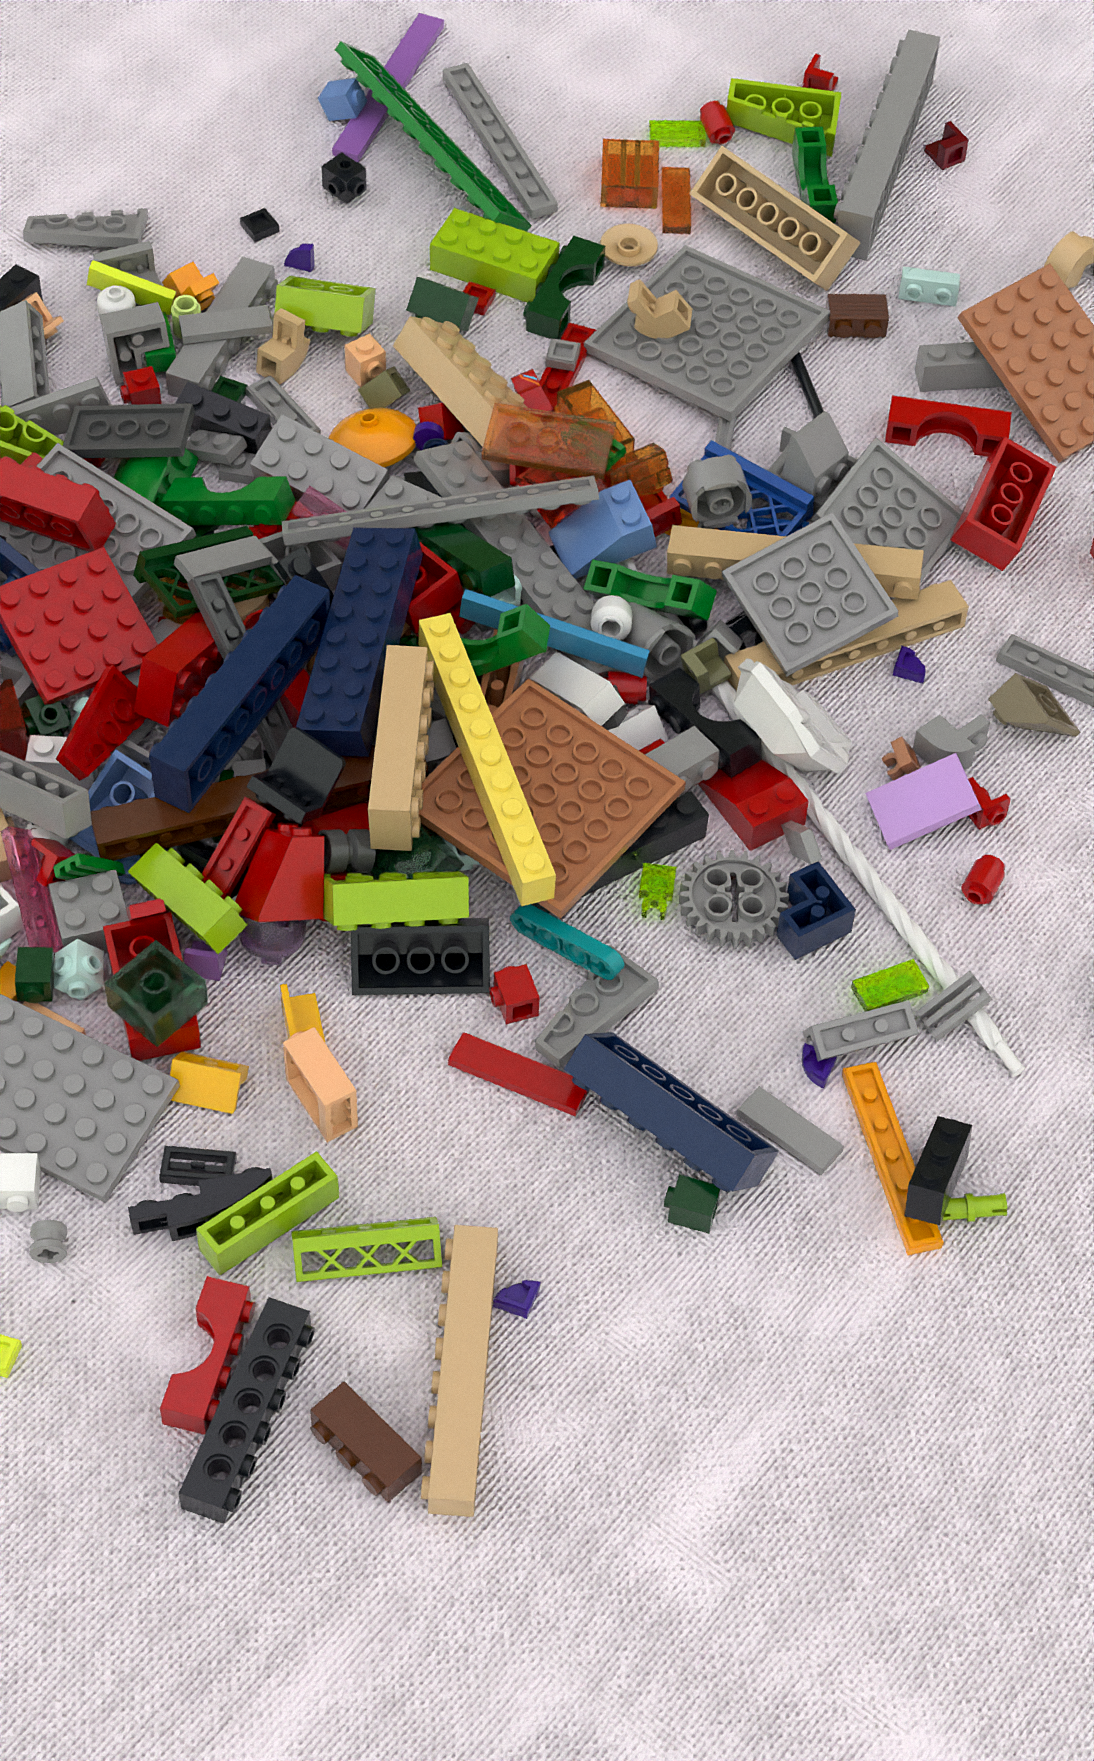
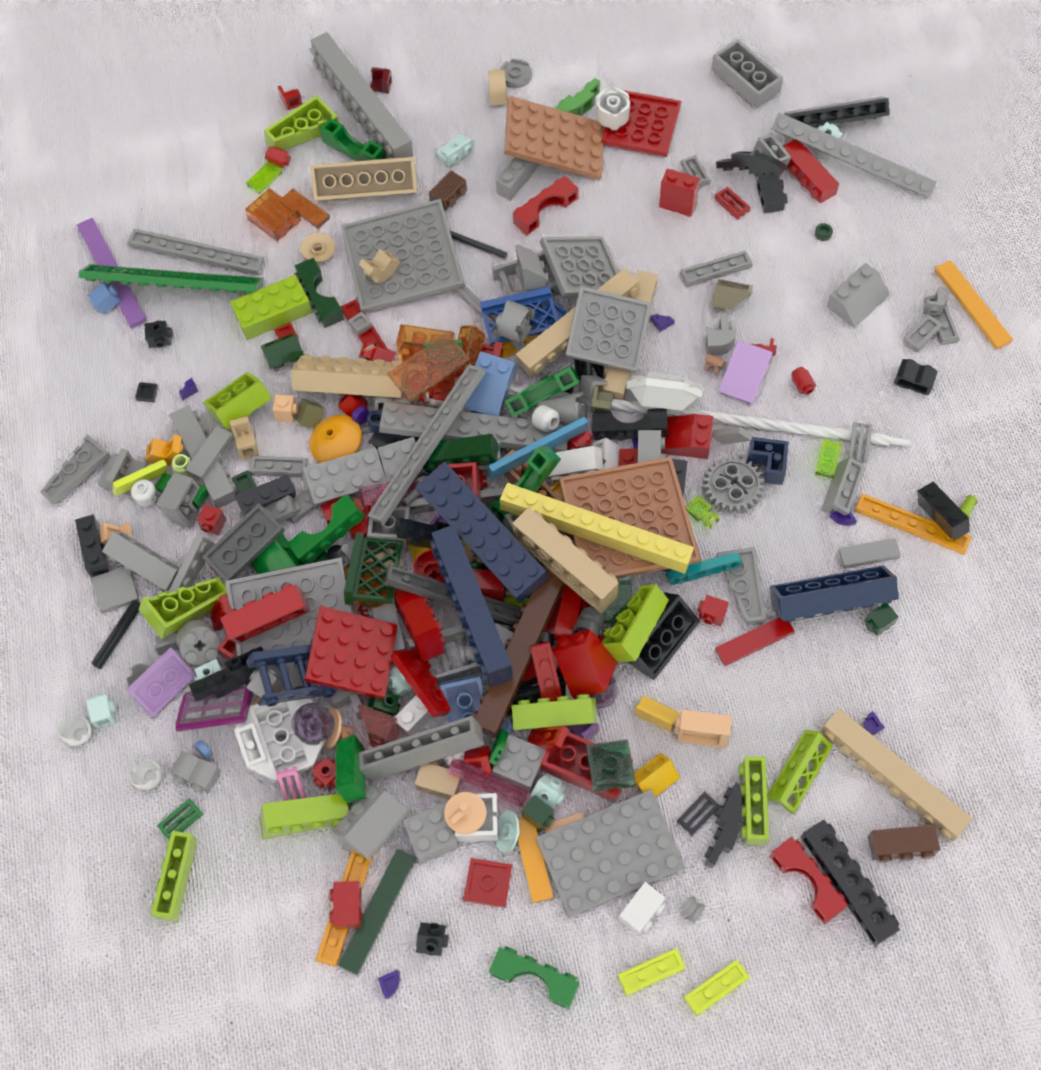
camera: 45 degrees left, 10 degrees up
(224, 558) = (372, 558): light grey tile -> none
(299, 777) = (543, 616): black bracket -> none
(1003, 503) = (613, 218): red brick -> none

